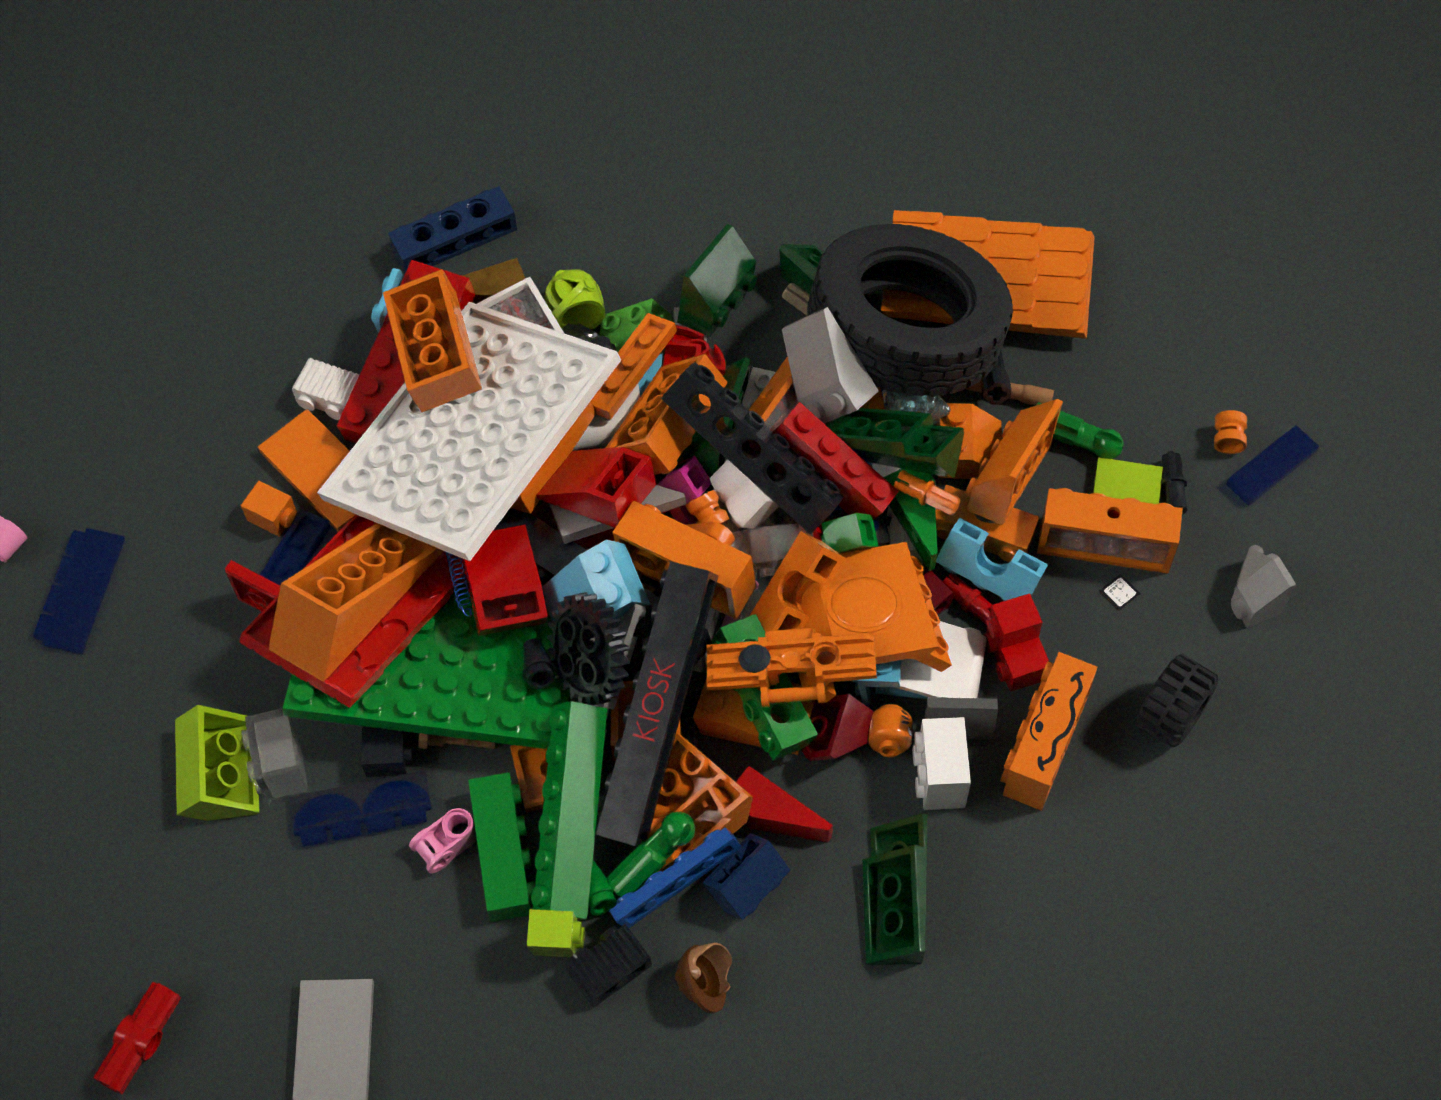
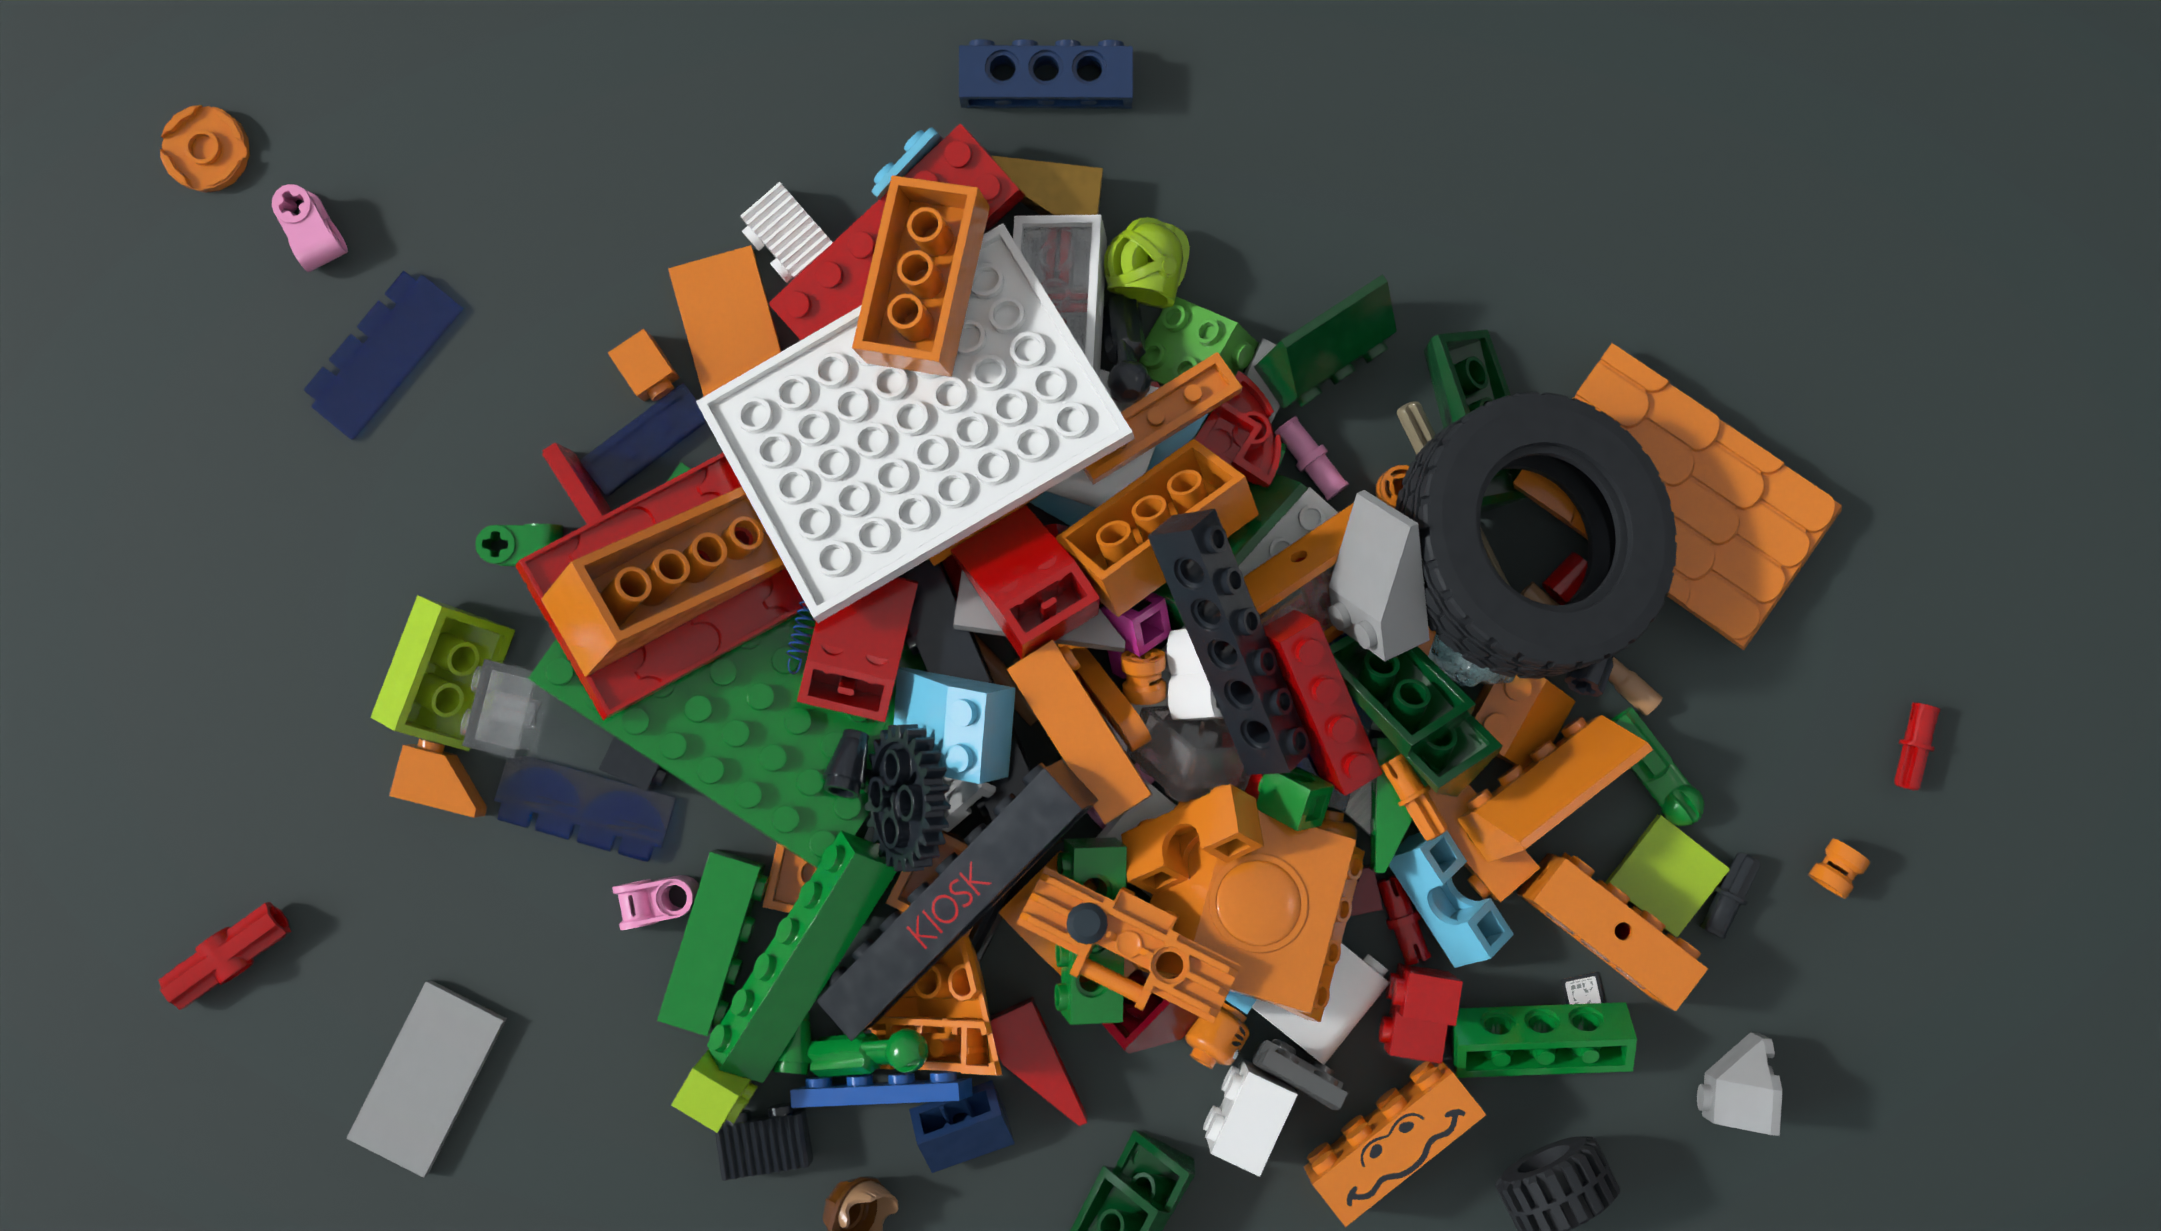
camera: 25 degrees right, 25 degrees up
(236, 660) = (521, 541): none -> green piece
(245, 838) = (436, 780): none -> orange slope
(733, 355) = (1311, 458): none -> bright pink pin
(1111, 619) = (1543, 1040): none -> green brick
(1230, 342) = (1916, 746): none -> red axle
(1272, 465) = (1863, 932): clear blue tile -> none

